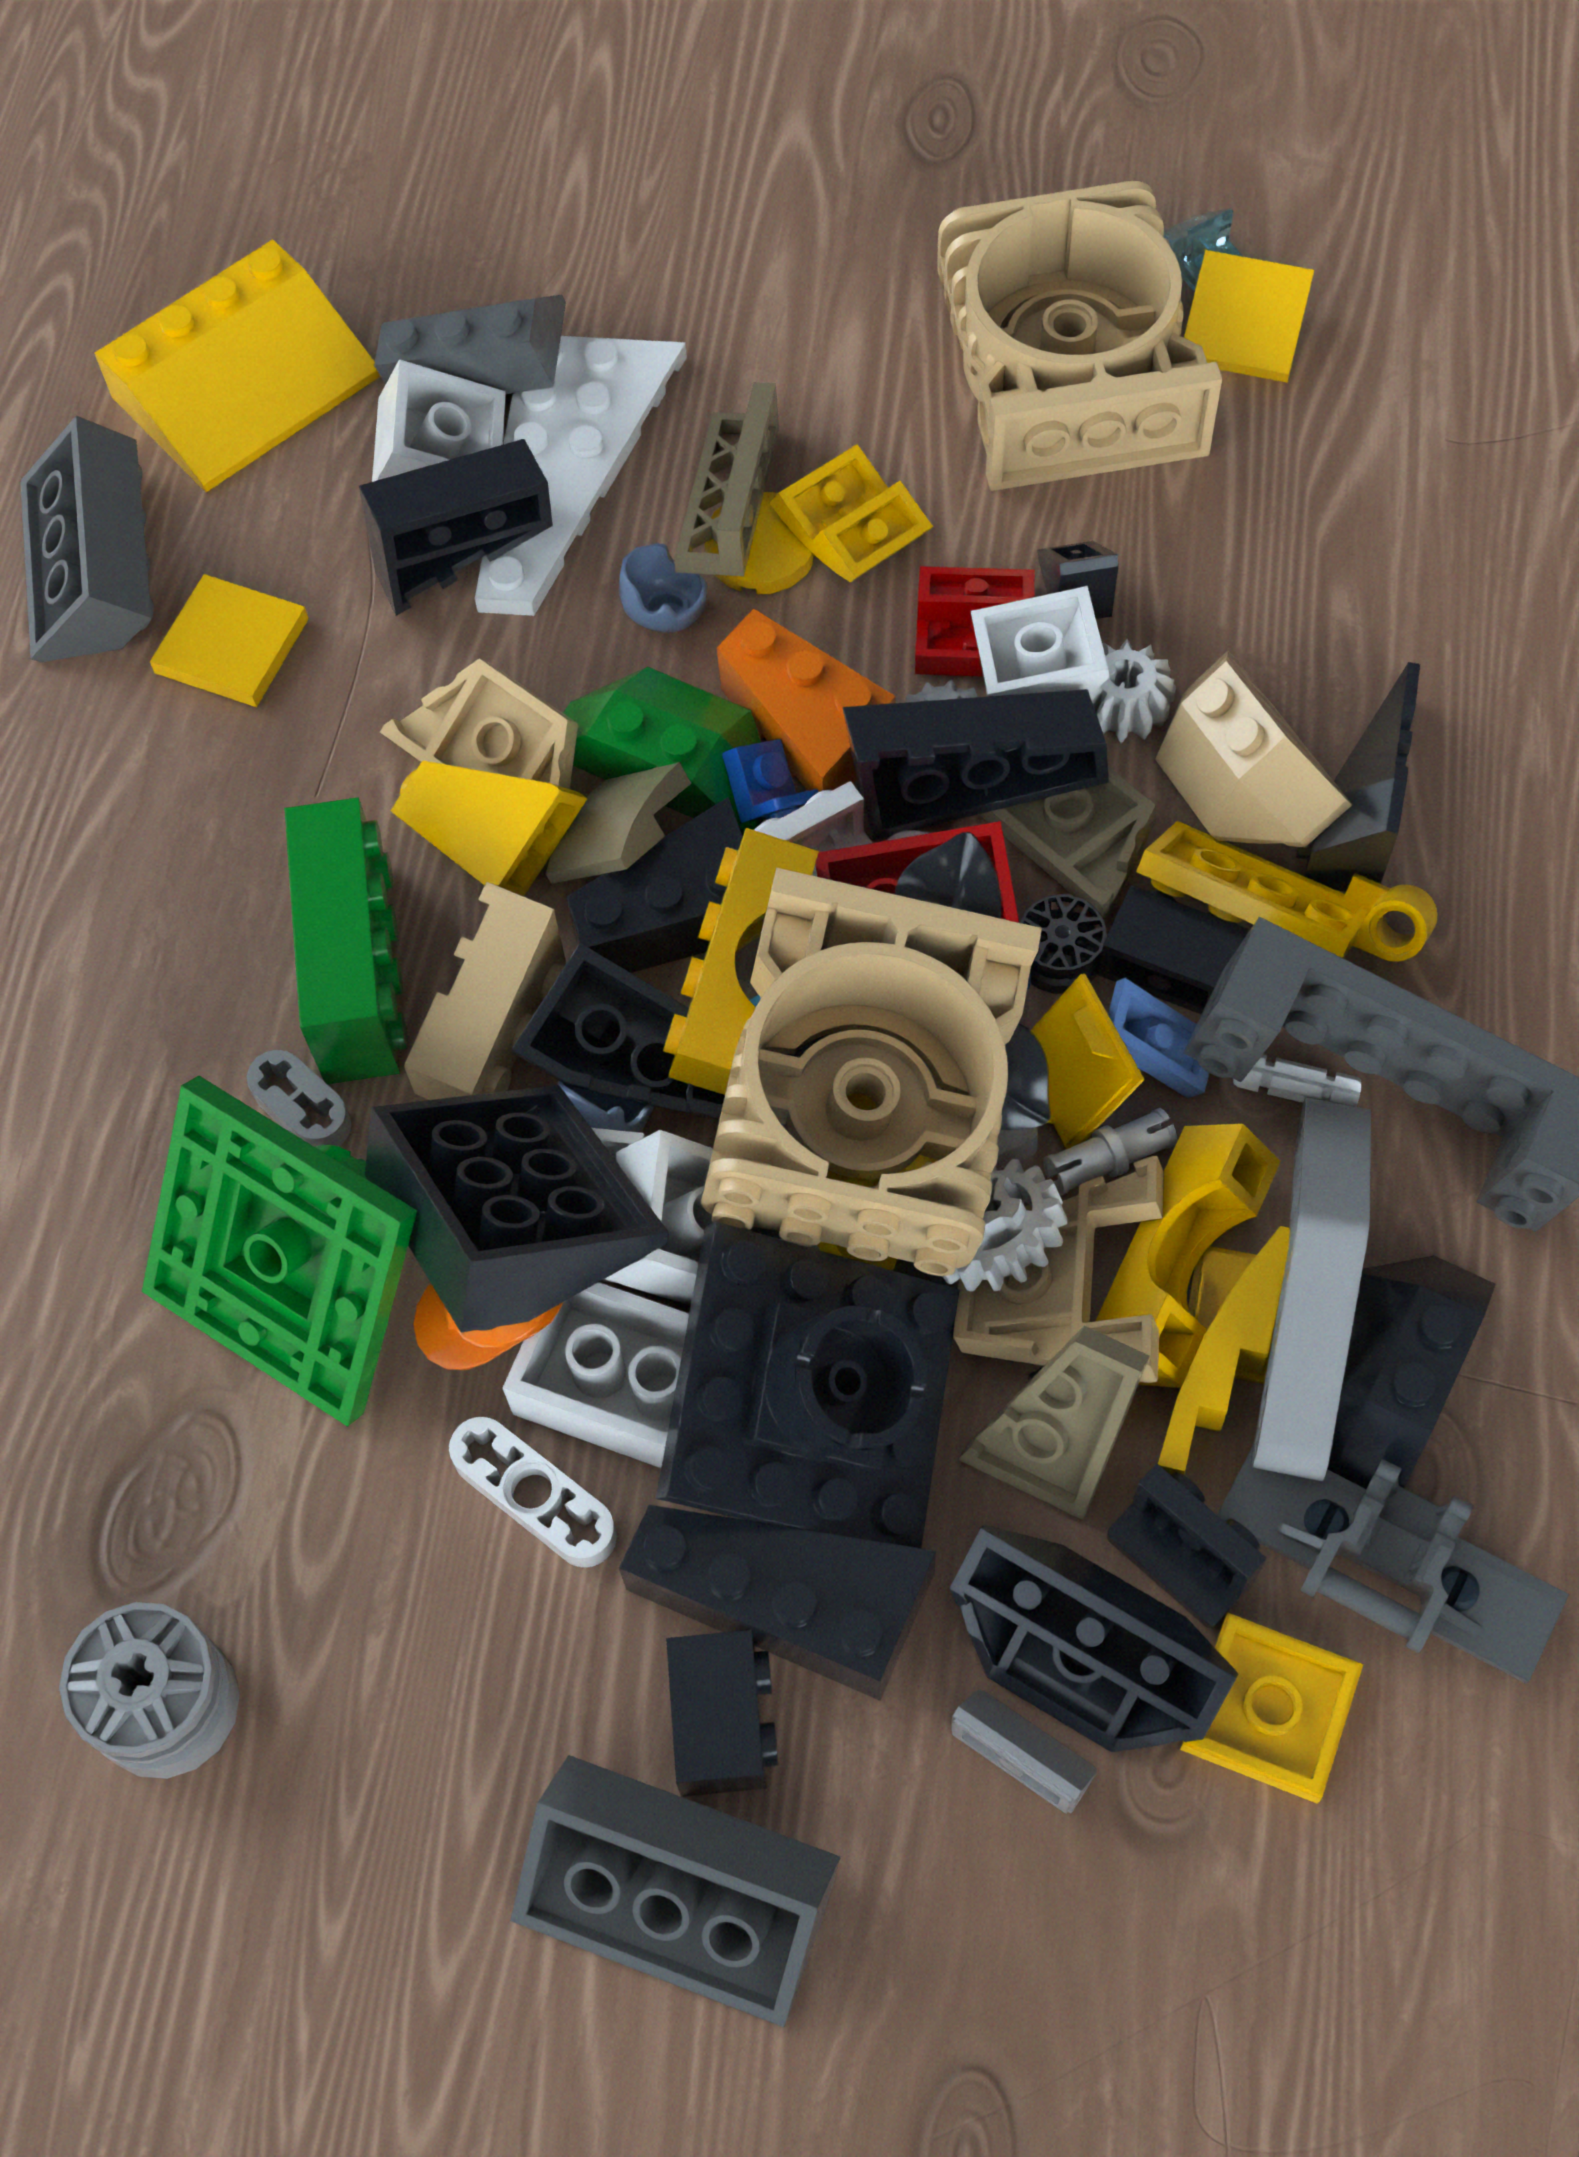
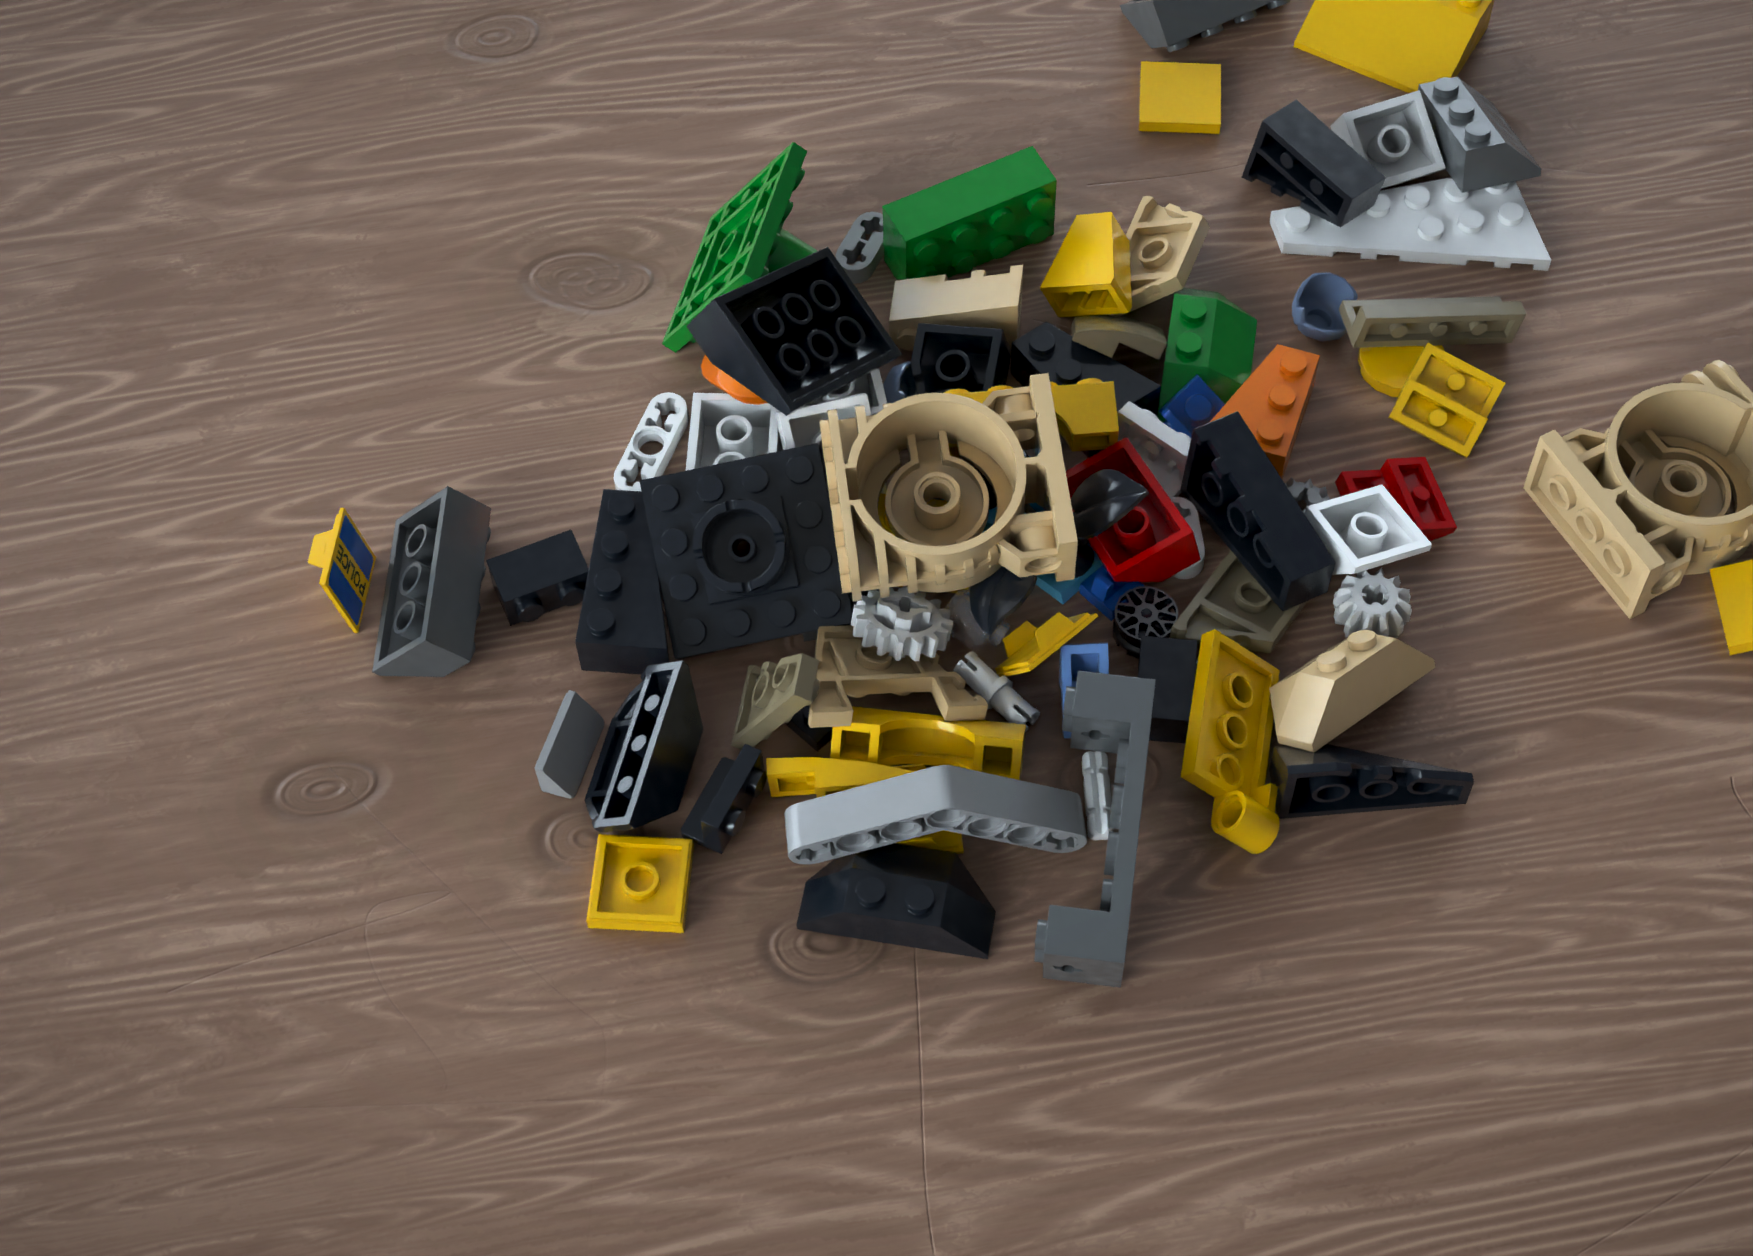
camera: 70 degrees right, 5 degrees down
(160, 1726) = (466, 297): light grey wheel -> none
(606, 2025) = (346, 567): none -> piece
(1081, 566) = (1460, 553): black slope -> none
(1463, 1590) = (772, 933): dark grey piece -> none

